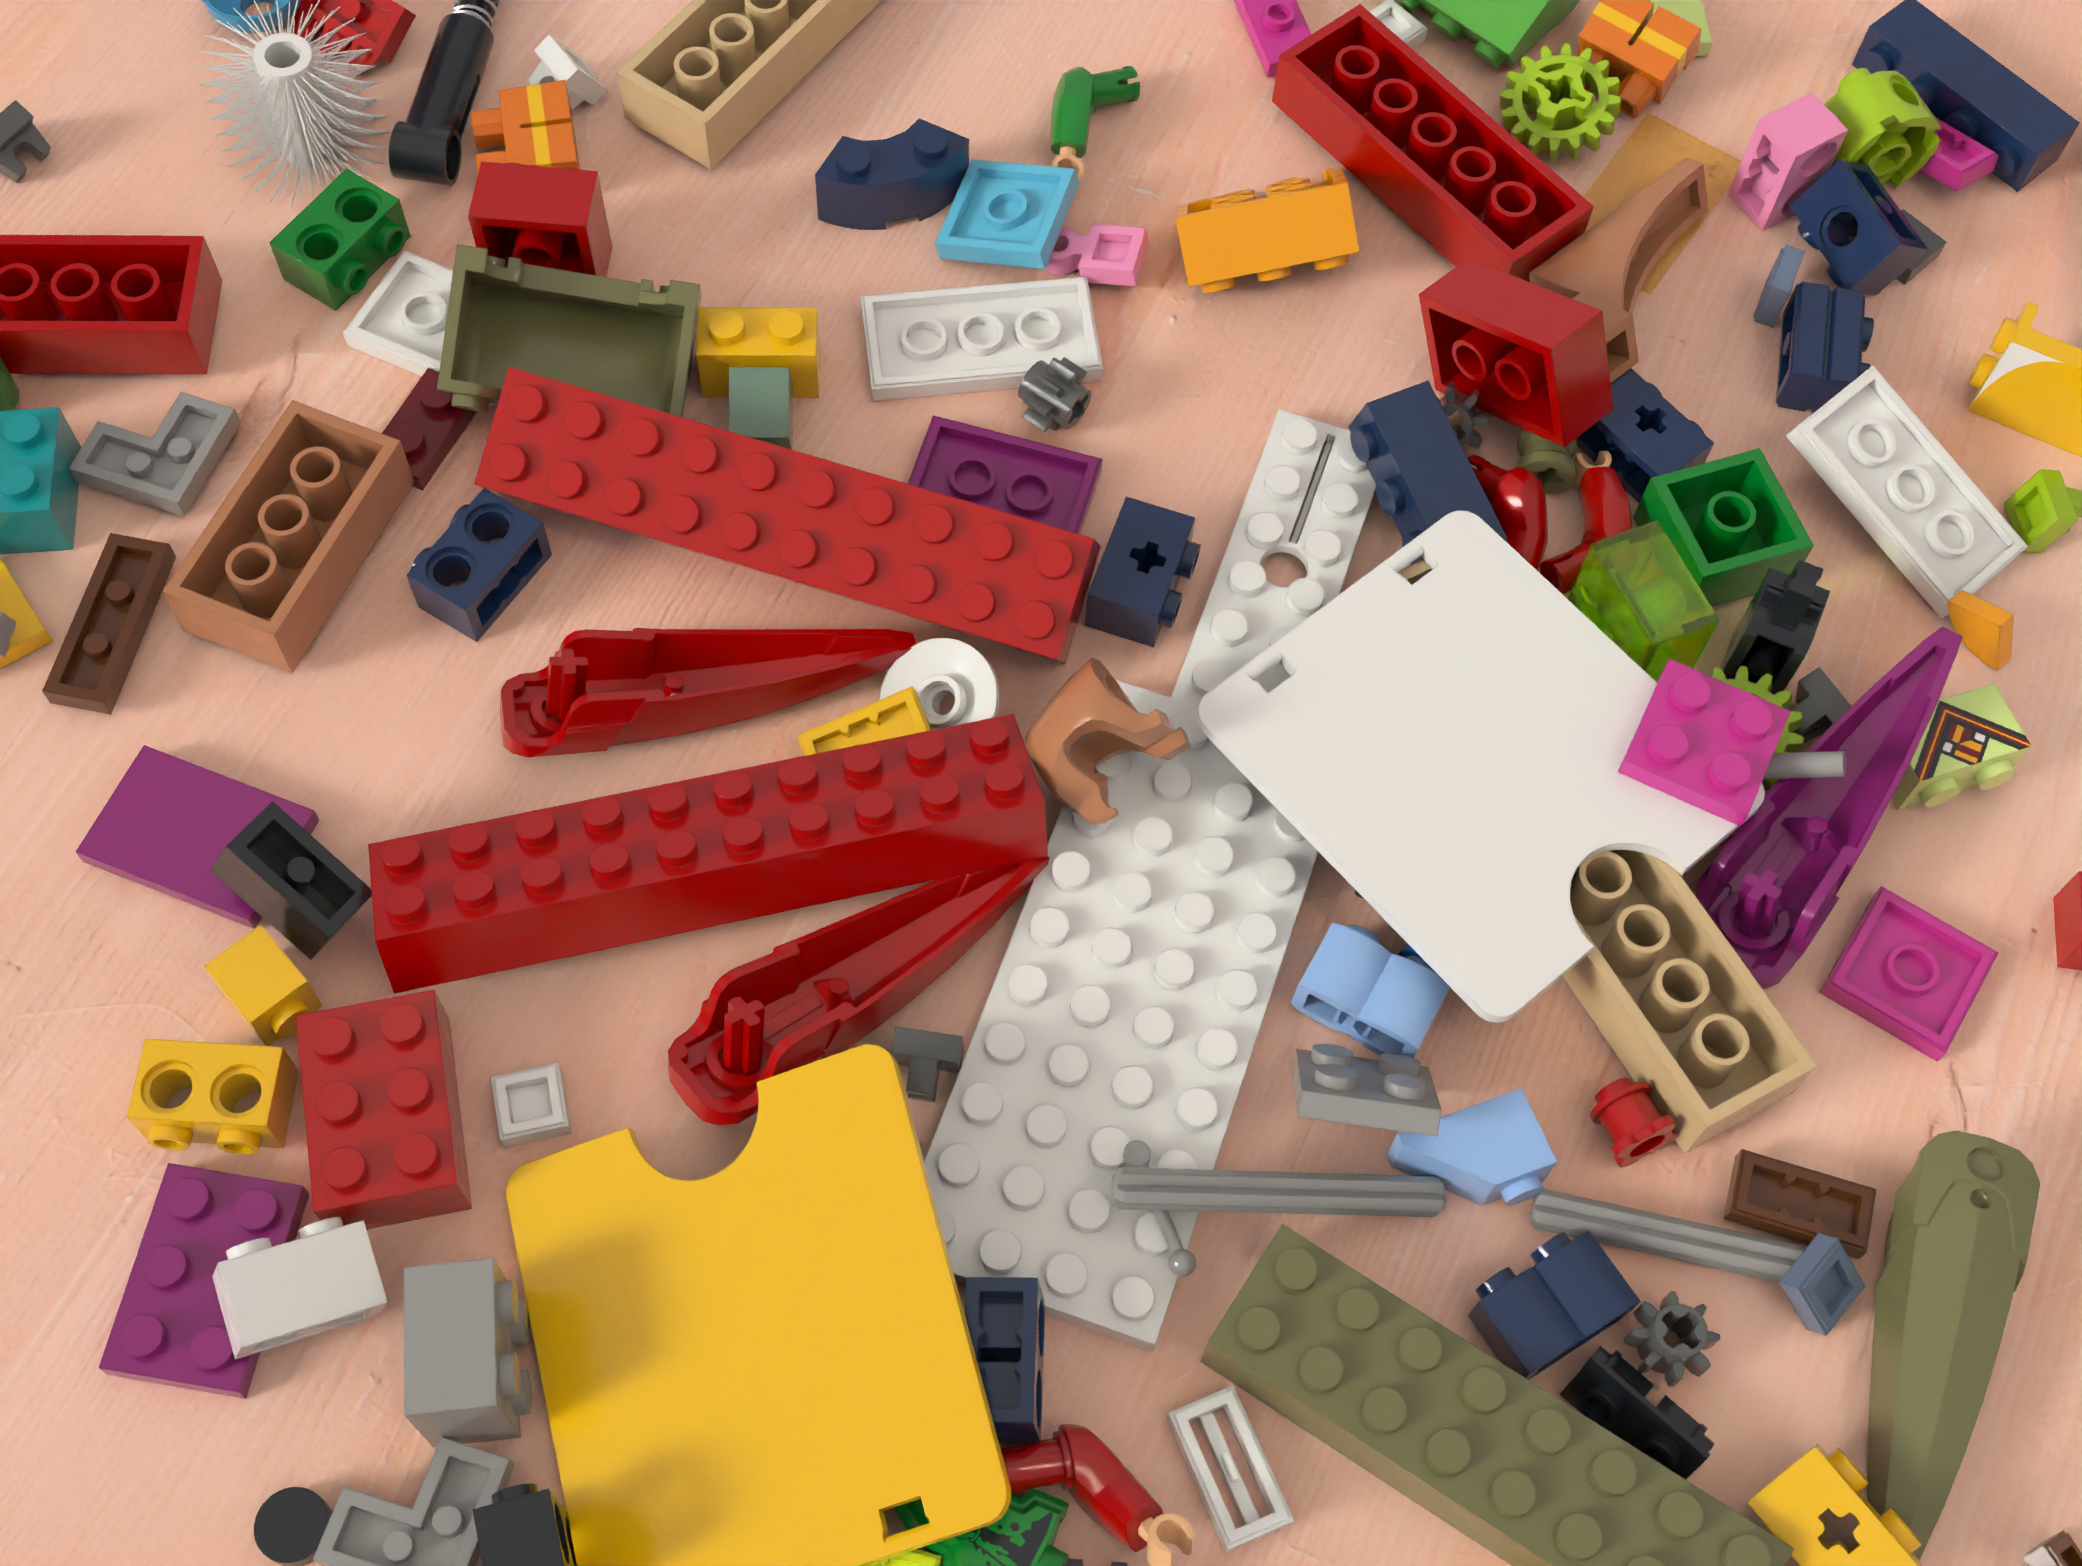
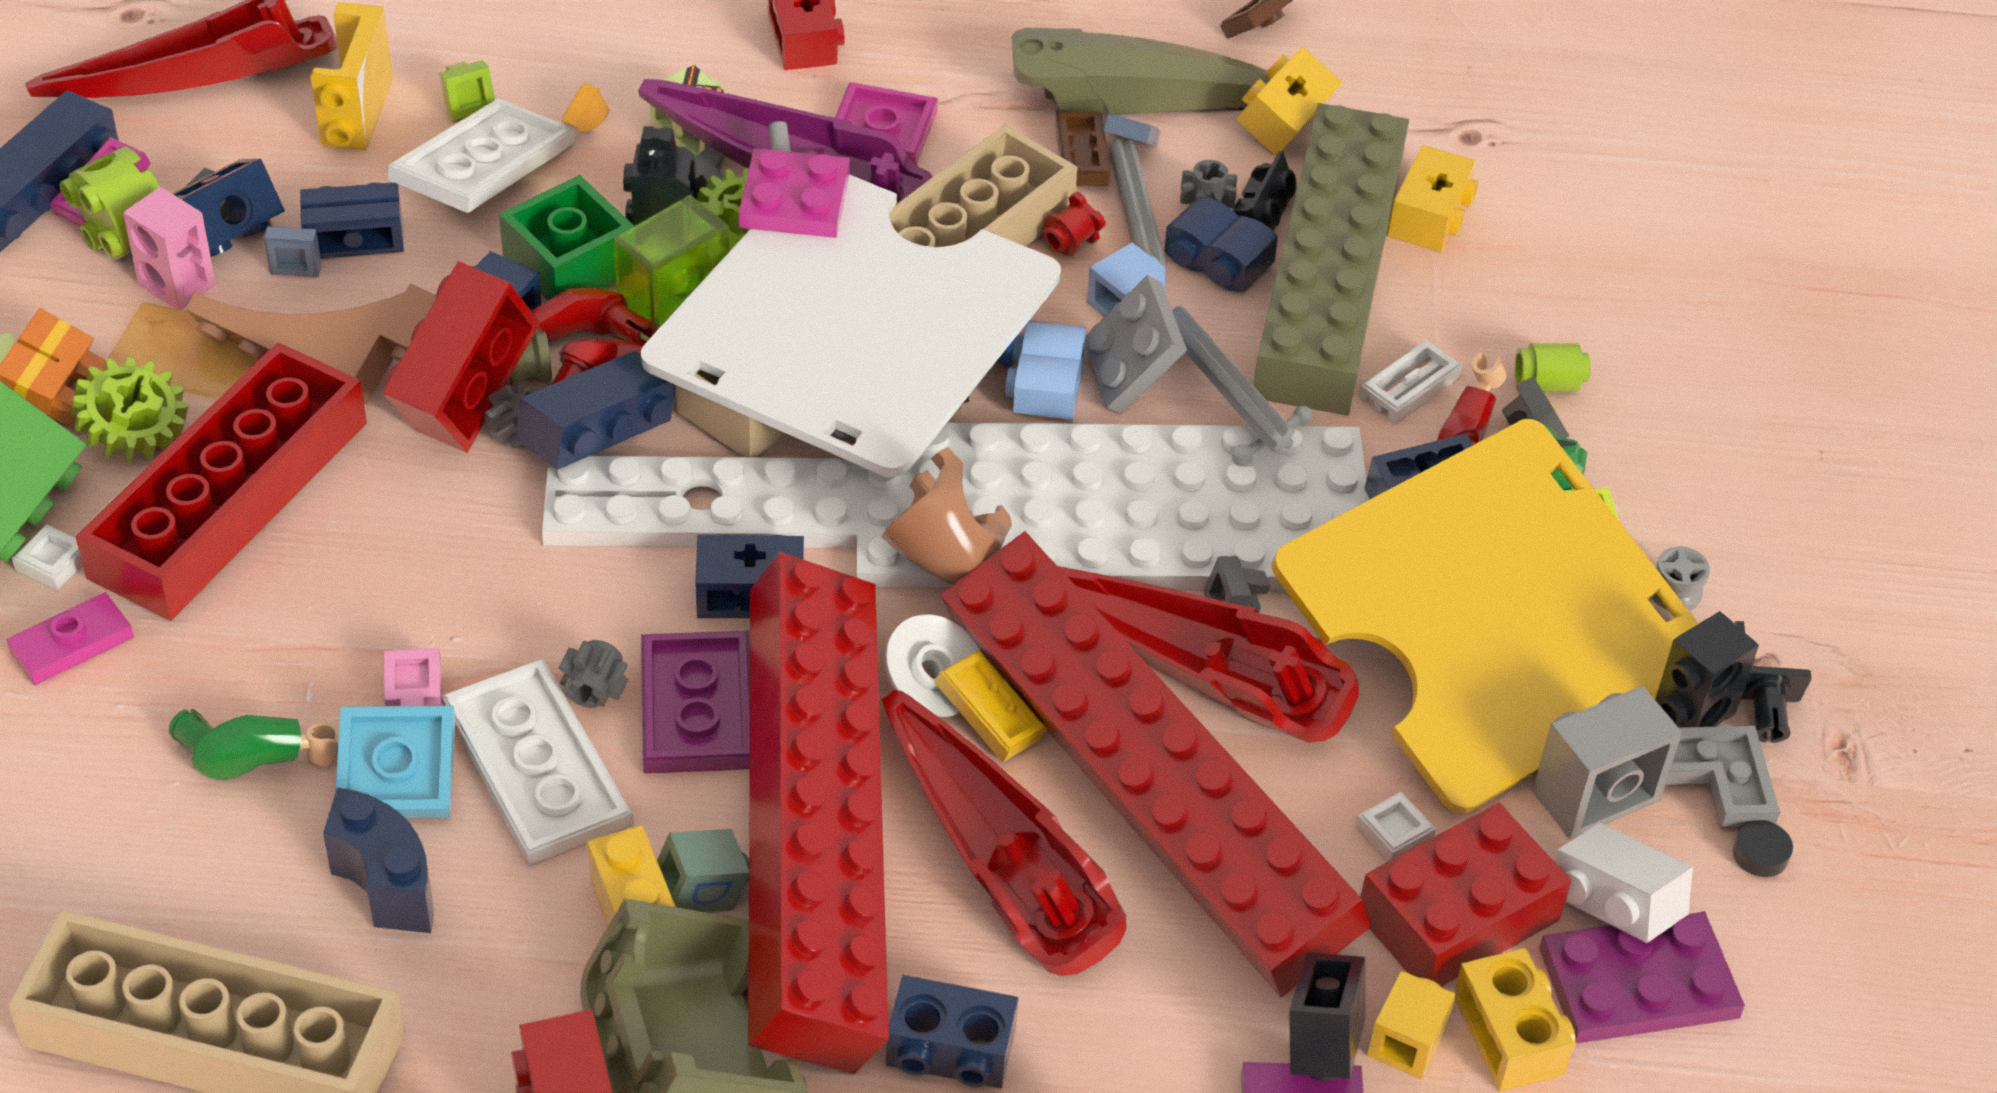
camera: 110 degrees left, 15 degrees down
(1269, 233) = (344, 568): light orange wedge -> none

